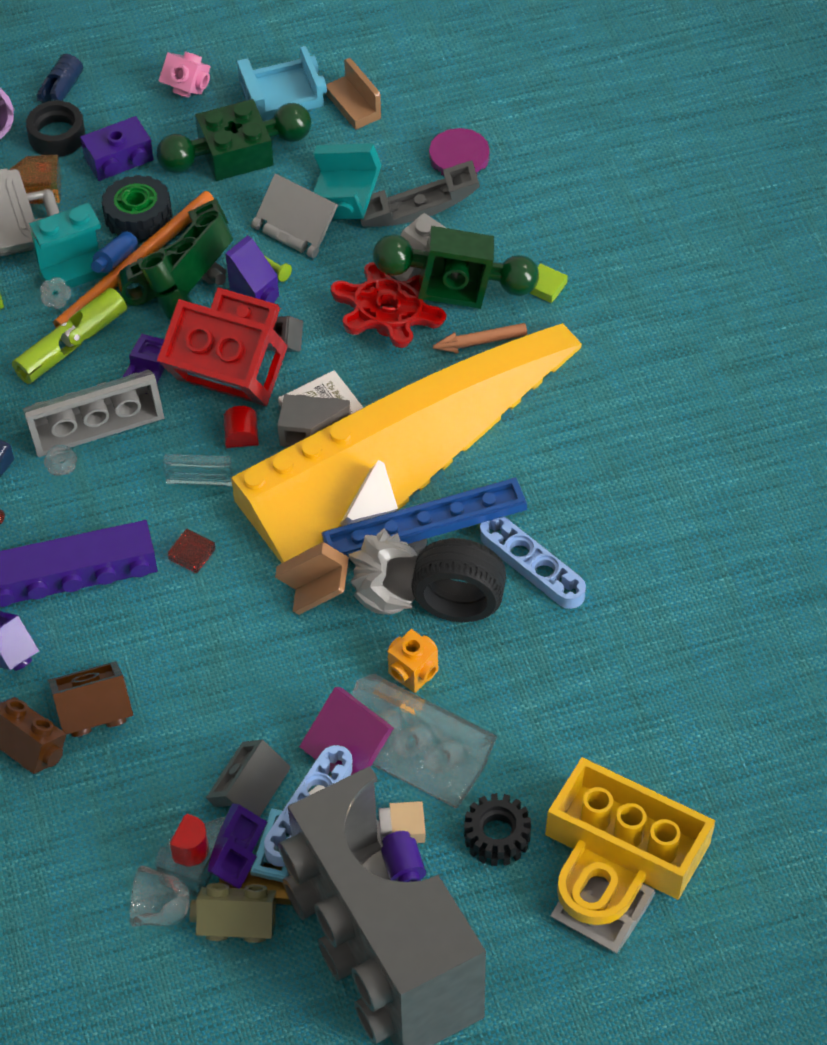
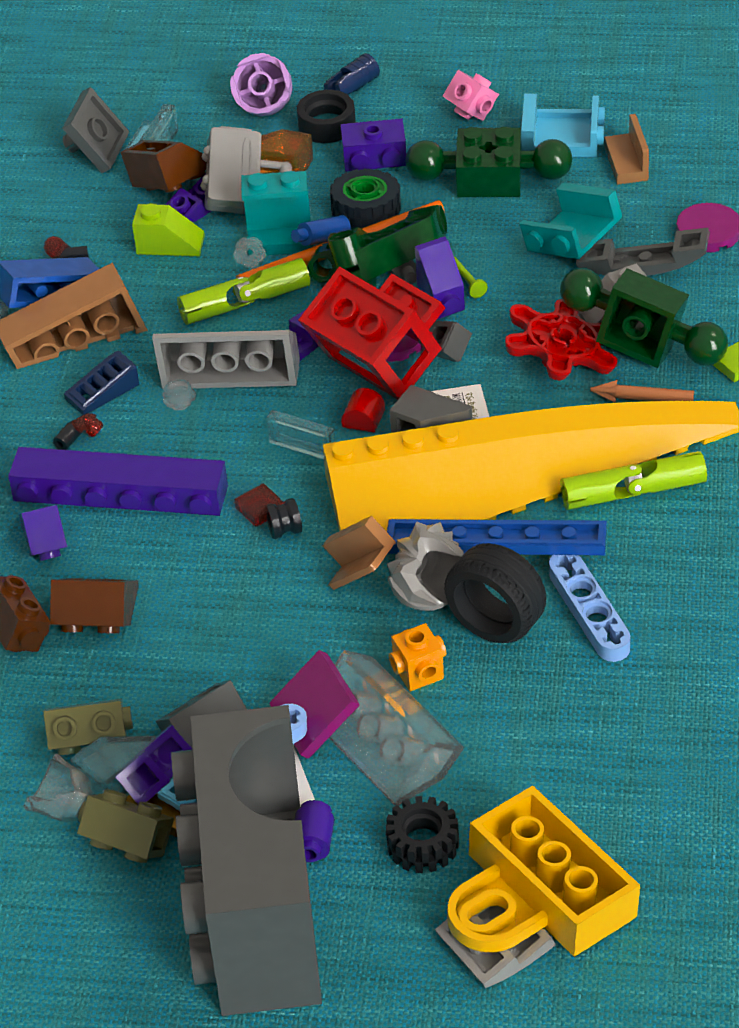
camera: 25 degrees right, 10 degrees down
(147, 824) = (84, 723): none -> olive brick
(190, 842) = (107, 744): red brick -> none
(223, 559) = (283, 518): none -> black wheel
(294, 215) = (511, 240): light grey piece -> none
(373, 497) = (451, 499): white slope -> none
(403, 817) = (339, 795): tan piece -> none
(514, 428) = (638, 479): none -> lime piece

